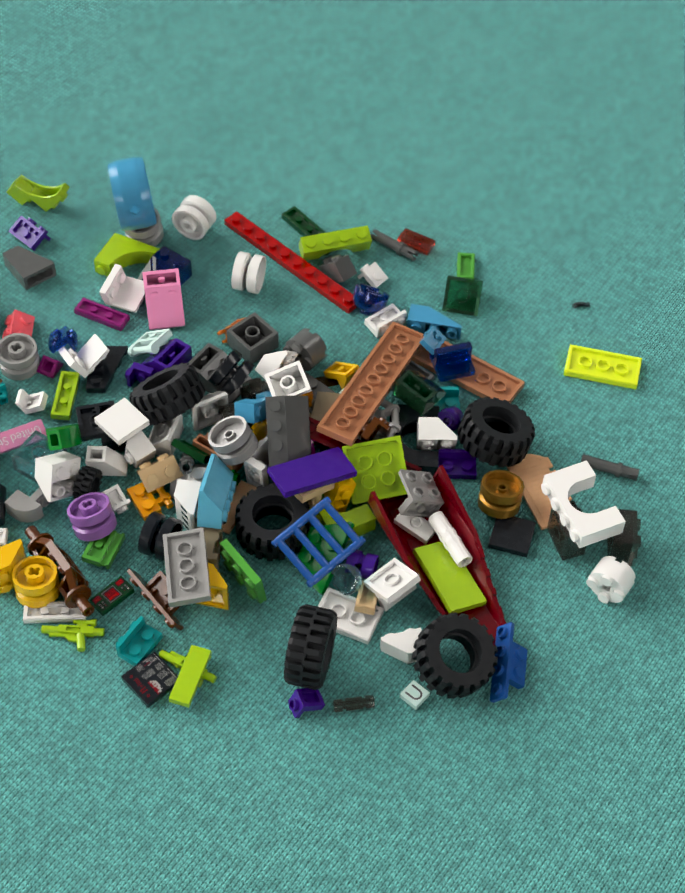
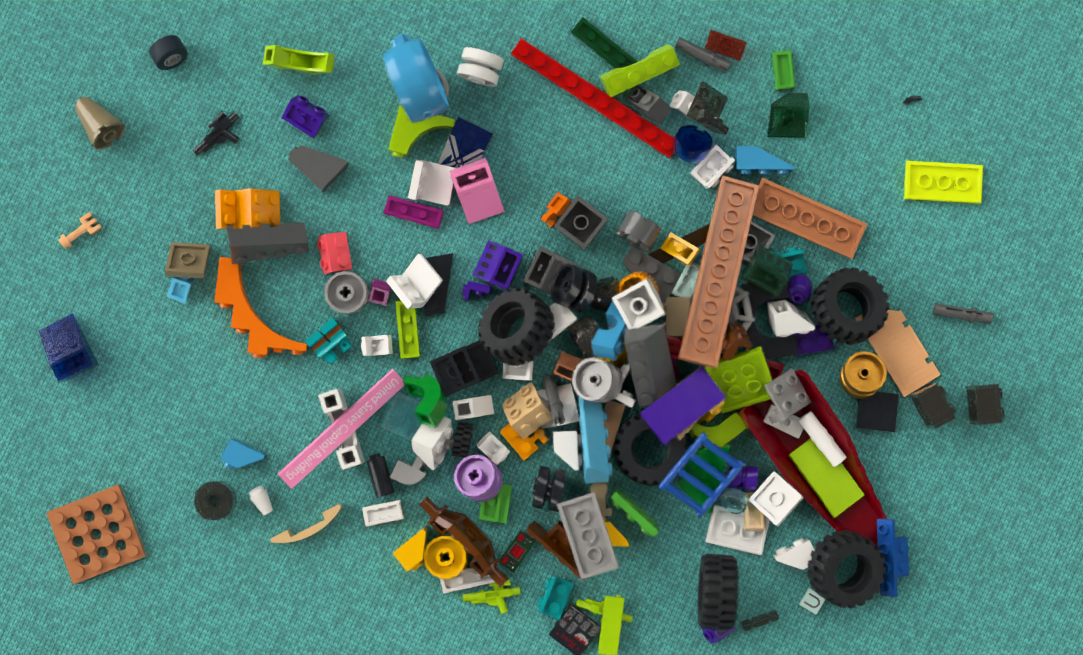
camera: 10 degrees left, 35 degrees up
(61, 337) = (386, 264): clear blue bracket -> none
(121, 421) = (481, 373): white tile -> none
(139, 449) = (499, 386): white slope -> none
(150, 342) = (477, 243): light aqua plate -> none
(191, 450) = (554, 383): dark green tile -> none
(248, 272) = (556, 136): white wheel -> none
(275, 361) = (611, 256): white slope -> none
(390, 276) = (707, 108): none -> clear smoke bracket
(432, 339) = (769, 199): dark azure bracket -> none
(453, 361) = (791, 215): clear blue bracket -> none
(582, 527) = (923, 380): white arch -> none
(611, 580) = (978, 455): white brick -> none

